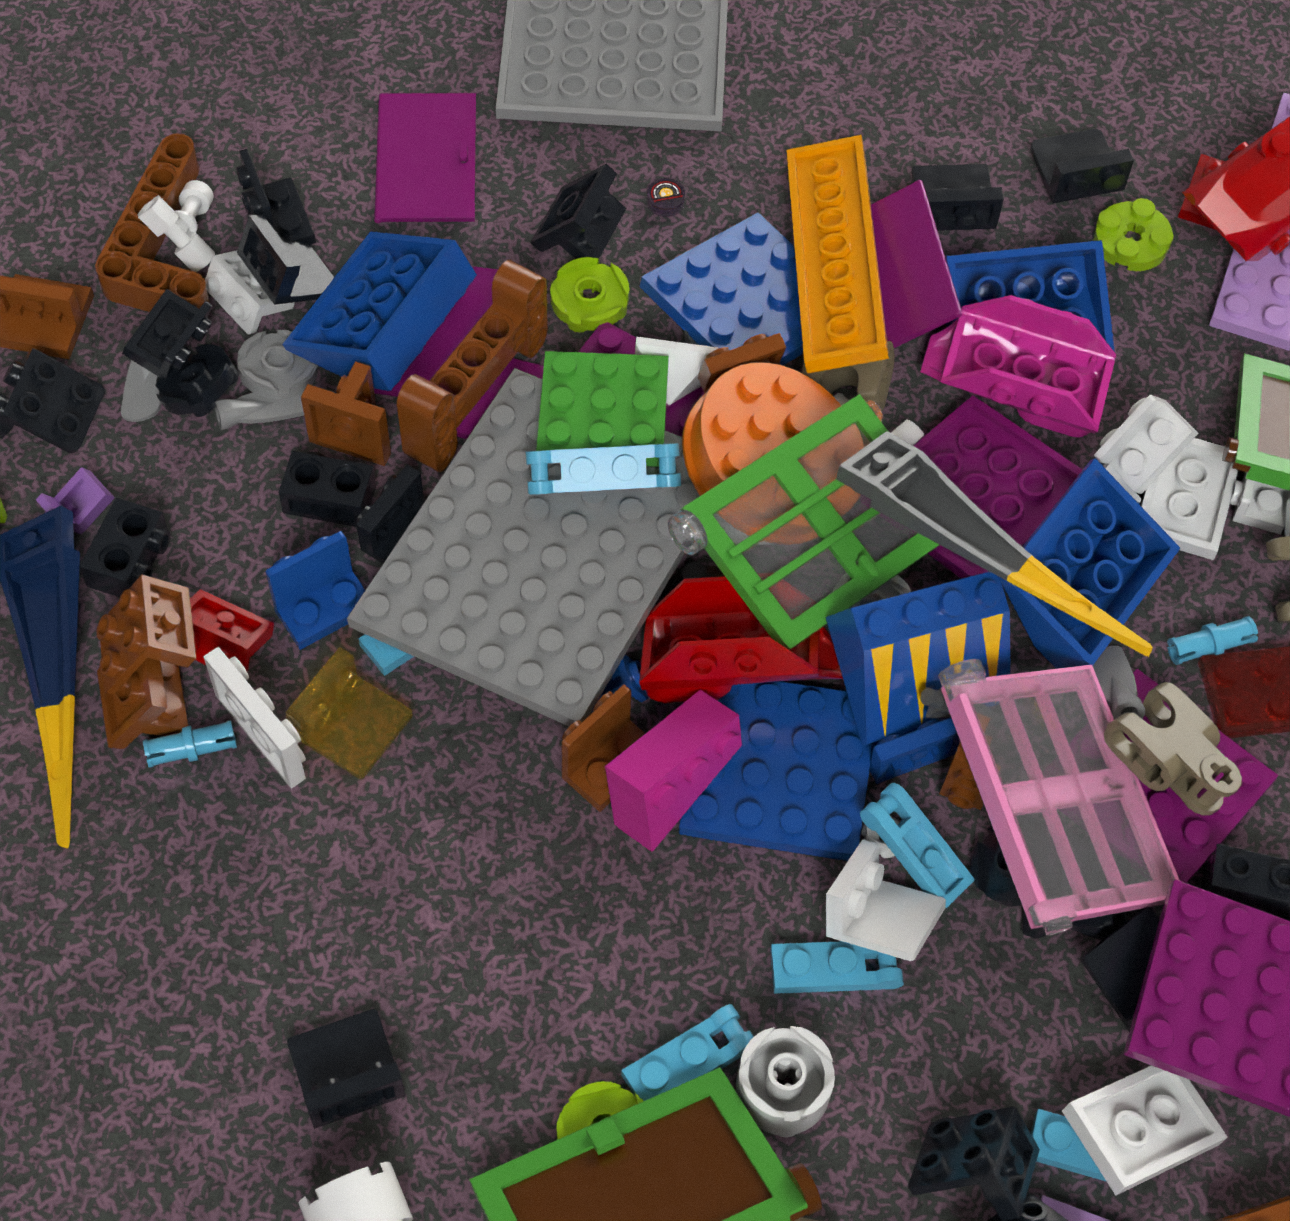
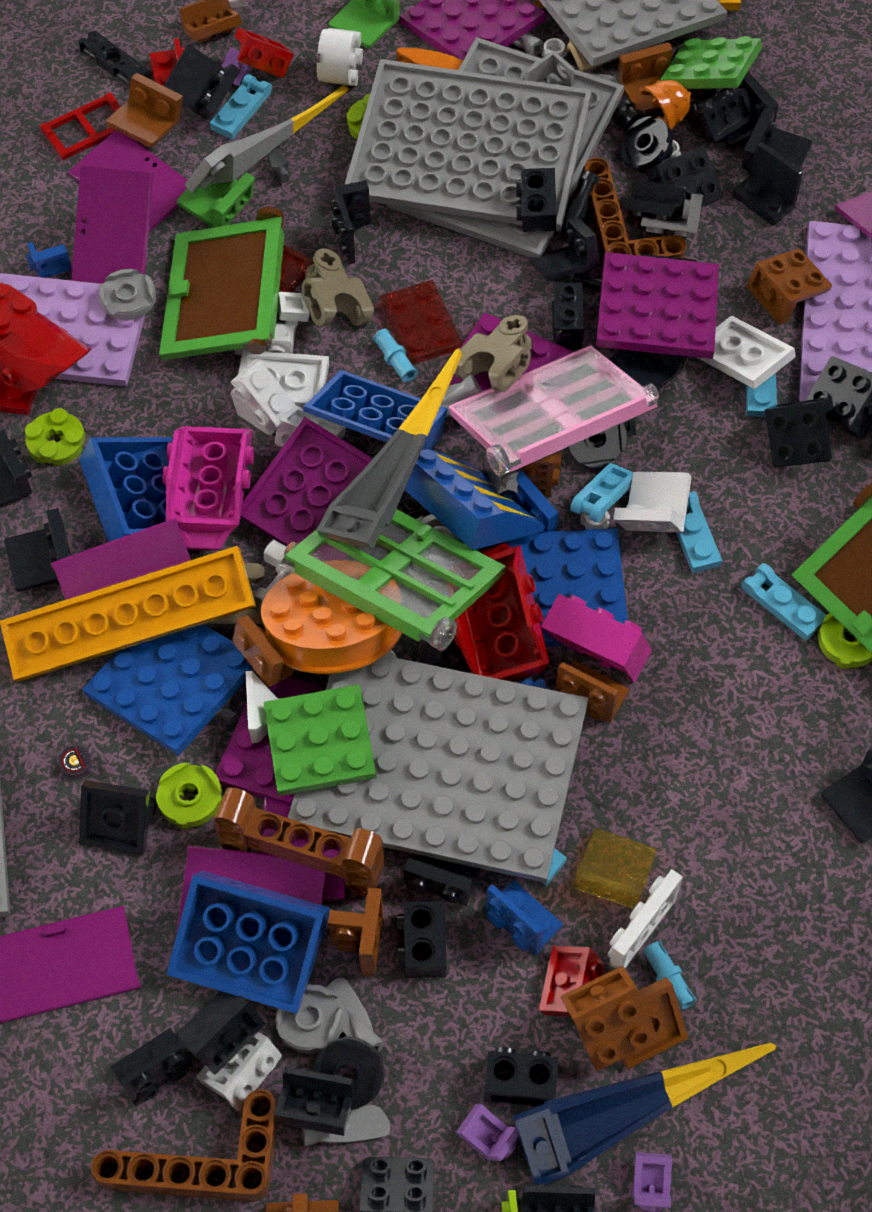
camera: 100 degrees left, 0 degrees up
(181, 224) = (195, 1138): white bar -> none
(603, 468) = (381, 720): medium azure plate -> none
(780, 1054) = (785, 537): white brick -> none

